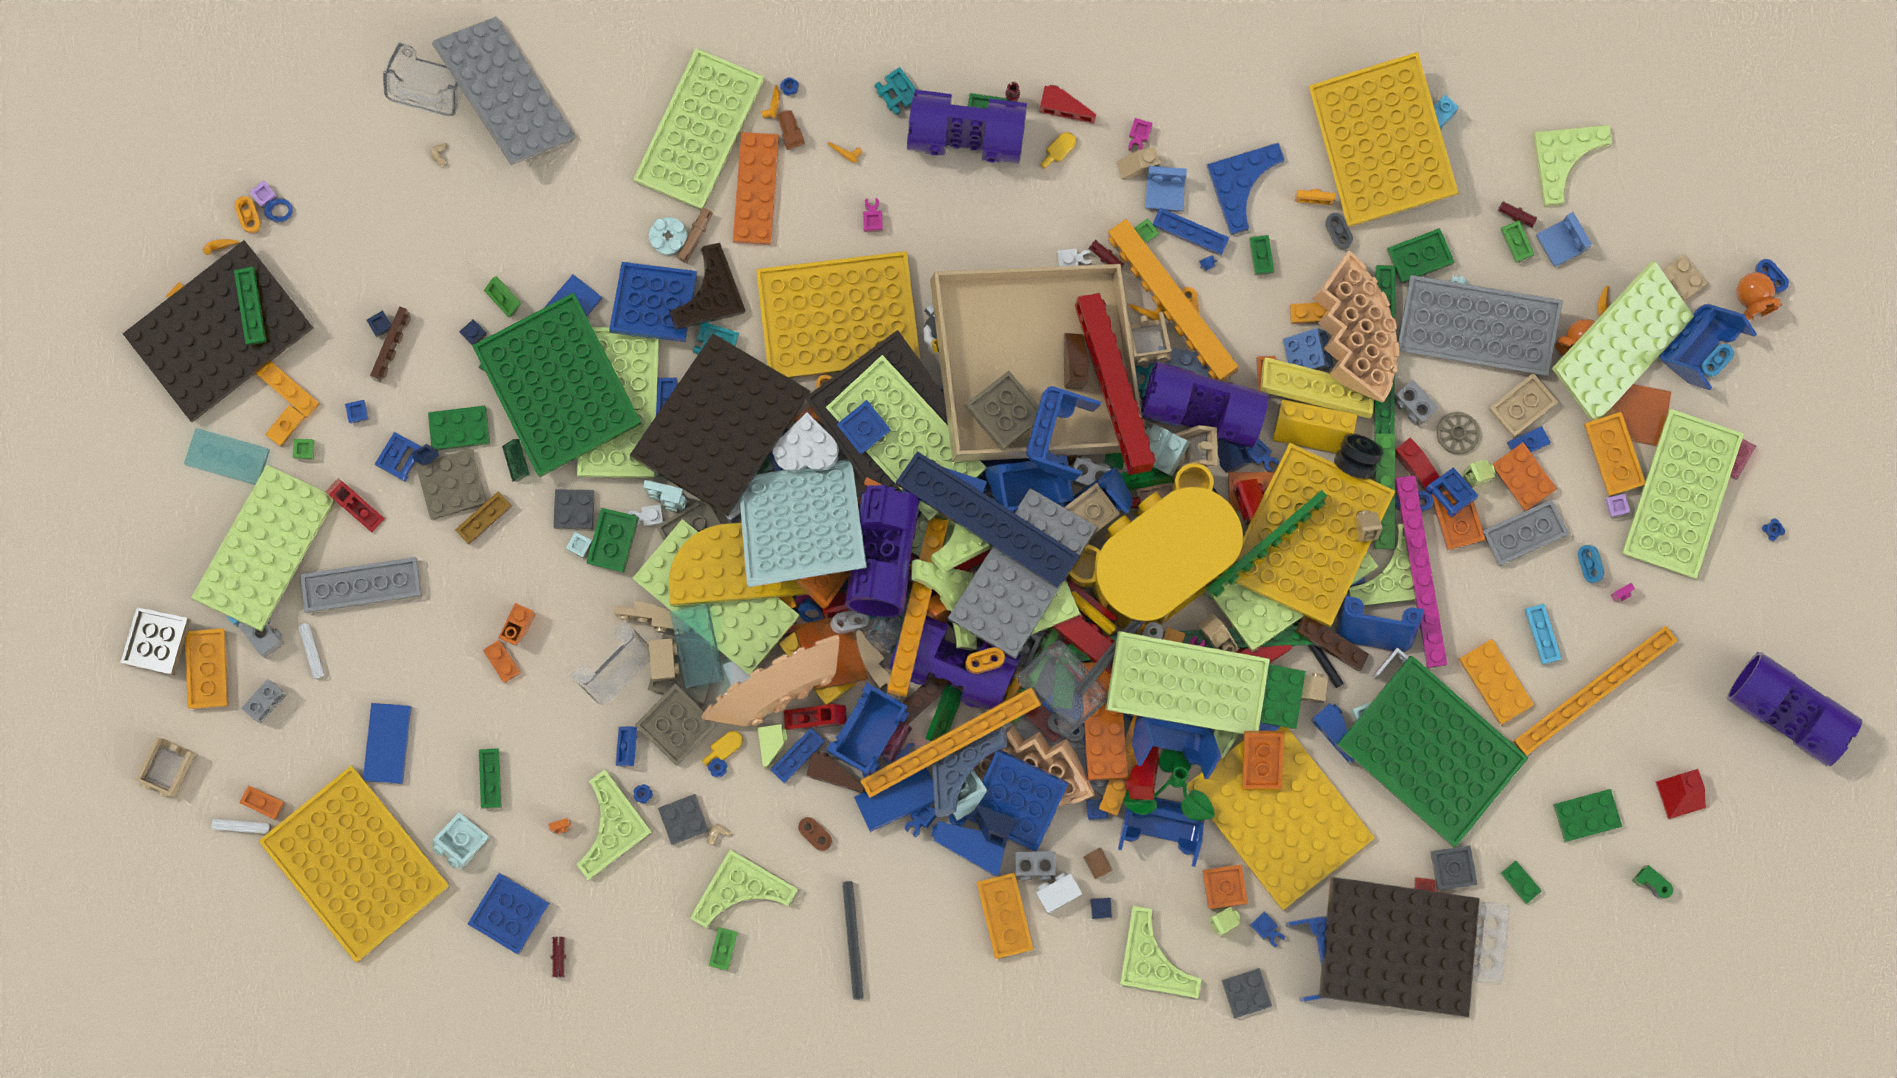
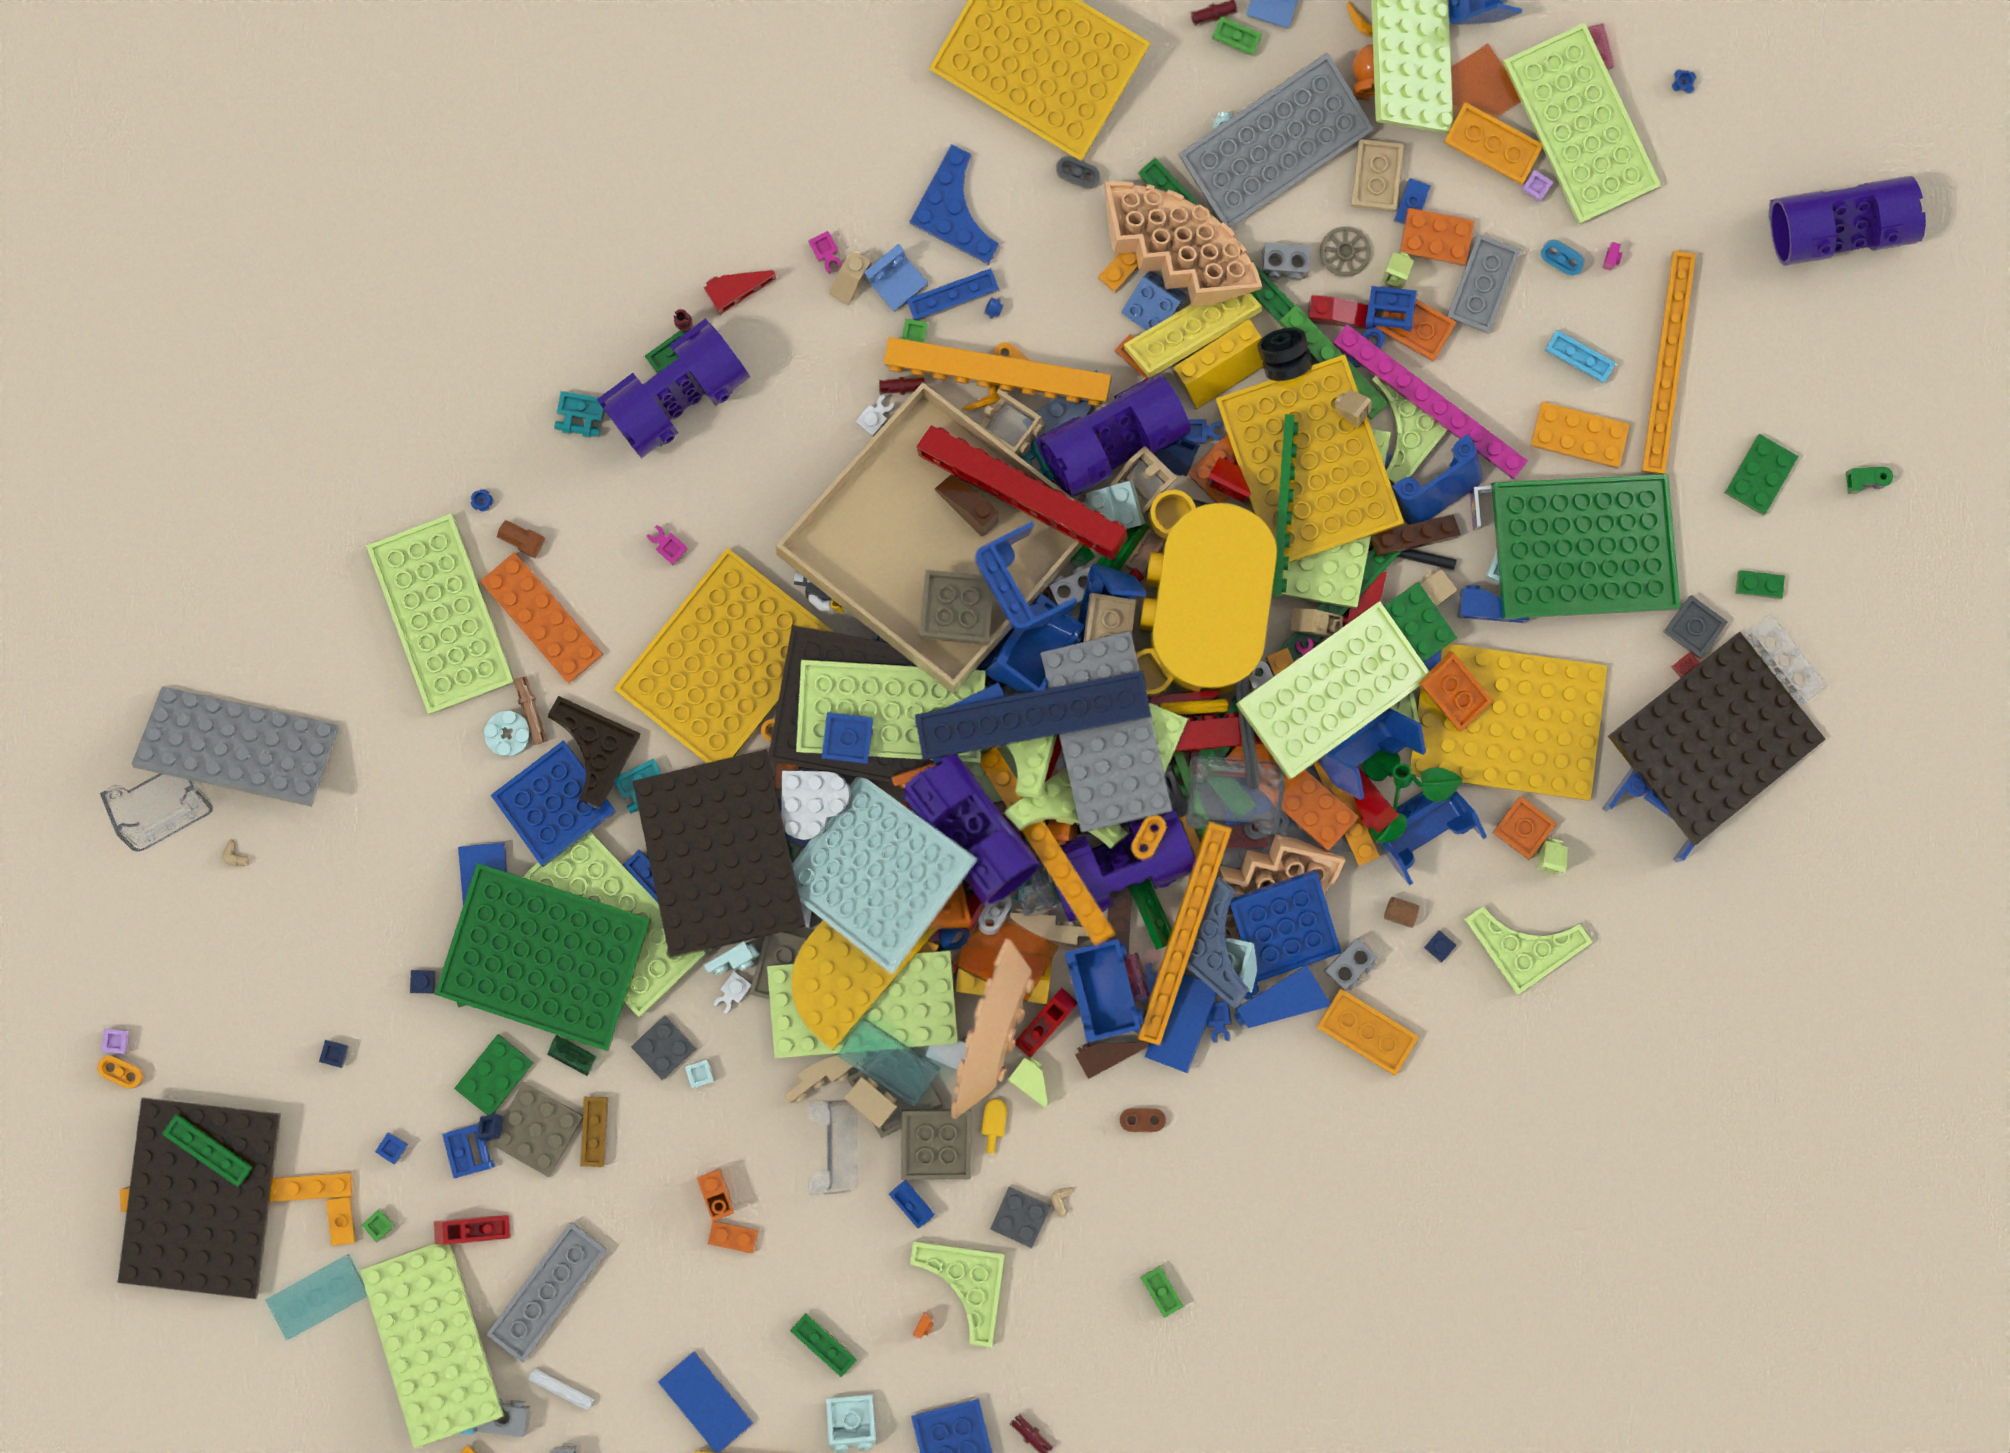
camera: 40 degrees left, 5 degrees up
(218, 245) = (120, 1124): light orange bar -> none
(271, 204) = (131, 1042): blue piece -> none
(388, 349) = (365, 1070): reddish brown plate -> none
(502, 296) = (417, 926): bright green plate -> none
(612, 540) = (724, 1042): green plate -> none
(637, 793) = (964, 1236): blue plate -> none
(717, 762) = (1009, 1139): blue plate -> none
(739, 881) = (1118, 1223): yellowish green plate -> none
(774, 105) = (484, 529): light orange bar -> none
(797, 755) = (1063, 1069): blue plate -> none
(851, 156) = (594, 511): light orange bar -> none
(852, 936) = (1261, 1176): dark grey axle -> none
(994, 825) = (1288, 966): dark blue slope -> none
(1058, 893) = (1393, 969): white brick -> none
(1059, 148) = (769, 330): yellow piece -> none
(1093, 810) = (1353, 871): blue tile -> none
(1246, 993) = (1626, 898): dark grey plate -> none
(1261, 255) = (1032, 257): green plate -> none
(1265, 926) = (1589, 828): blue plate -> none
(1314, 196) = (1028, 162): light orange plate -> none
(1420, 255) = (1167, 127): green plate -> none
(1682, 793) = (1820, 380): red slope -> none

